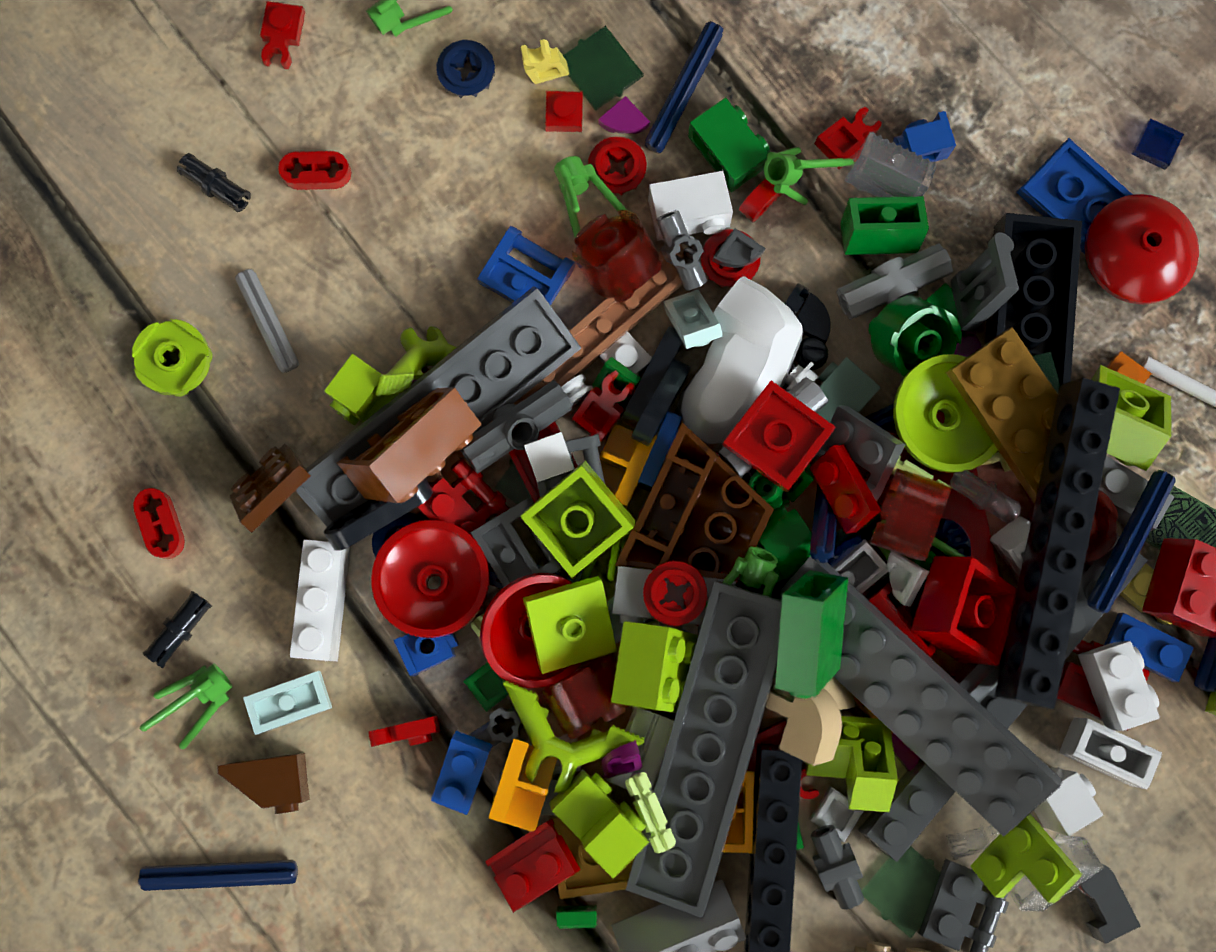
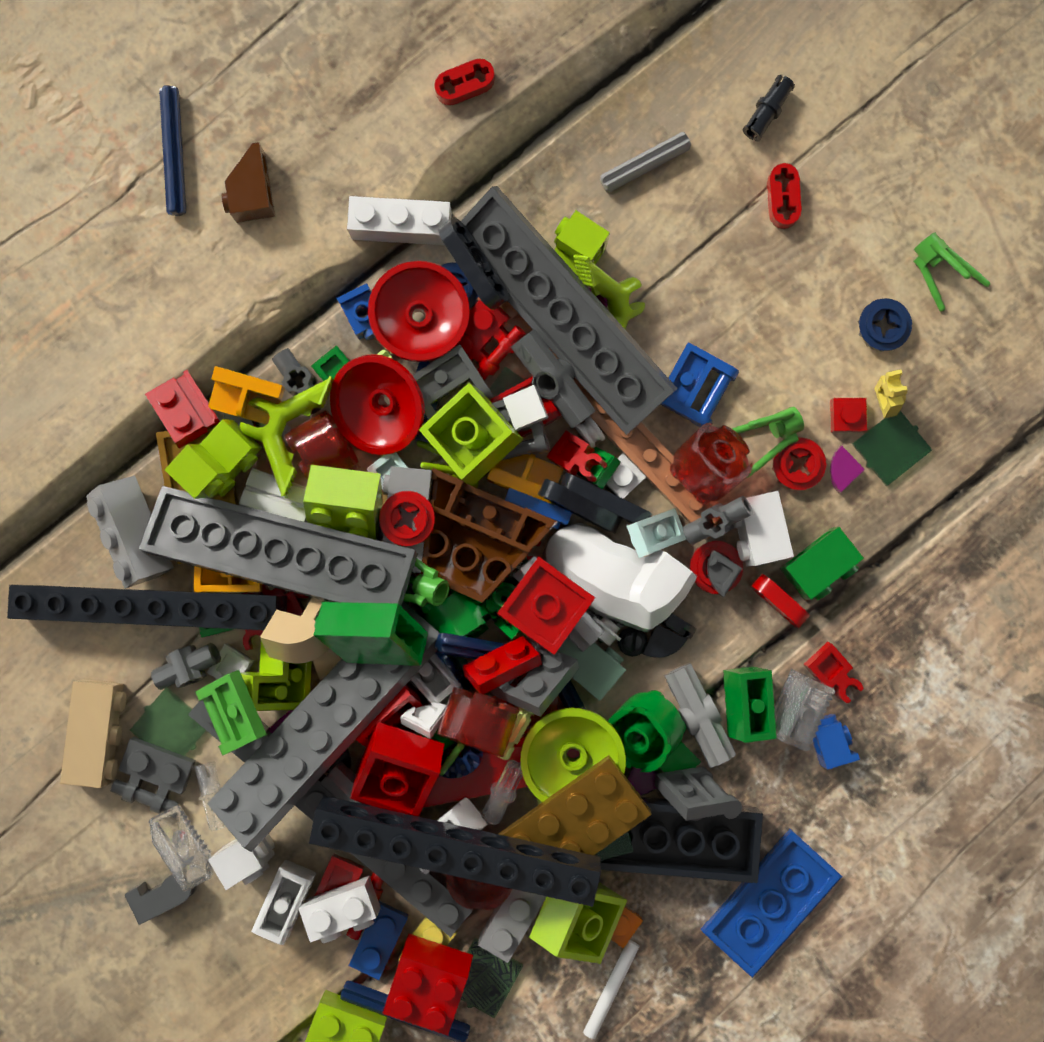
camera: 90 degrees right, 5 degrees up
(177, 629) = (374, 103): black pin -> none
(178, 378) = (615, 100): lime plate -> none
(207, 685) = (328, 133): bright green plant -> none
(268, 487) = (493, 169): reddish brown plate -> none
(281, 28) = (916, 159): red plate -> none
(287, 702) = (314, 199): light aqua plate -> none
(413, 447) = (527, 289): wedge -> none
(415, 731) = (292, 307): red plate -> none
(461, 772) = (258, 346): blue plate -> none
(570, 624) = (381, 431): lime plate -> none
(576, 916) = (142, 447): green tile -> none
(622, 760) = (267, 479): magenta tile -> none
(650, 812) = (223, 502): yellowish green axle -> none
(684, 87) = (876, 522): dark blue axle -> none
(786, 169) = (795, 611): bright green plant -> none
(898, 803) = (231, 712): none -> bright green plate
(1030, 853) = (194, 826): lime plate -> none
(1126, 262) = (726, 922): red dish -> none
(1131, 541) = (464, 921): dark blue axle -> none
(1157, 144) = (840, 960): clear blue tile -> none

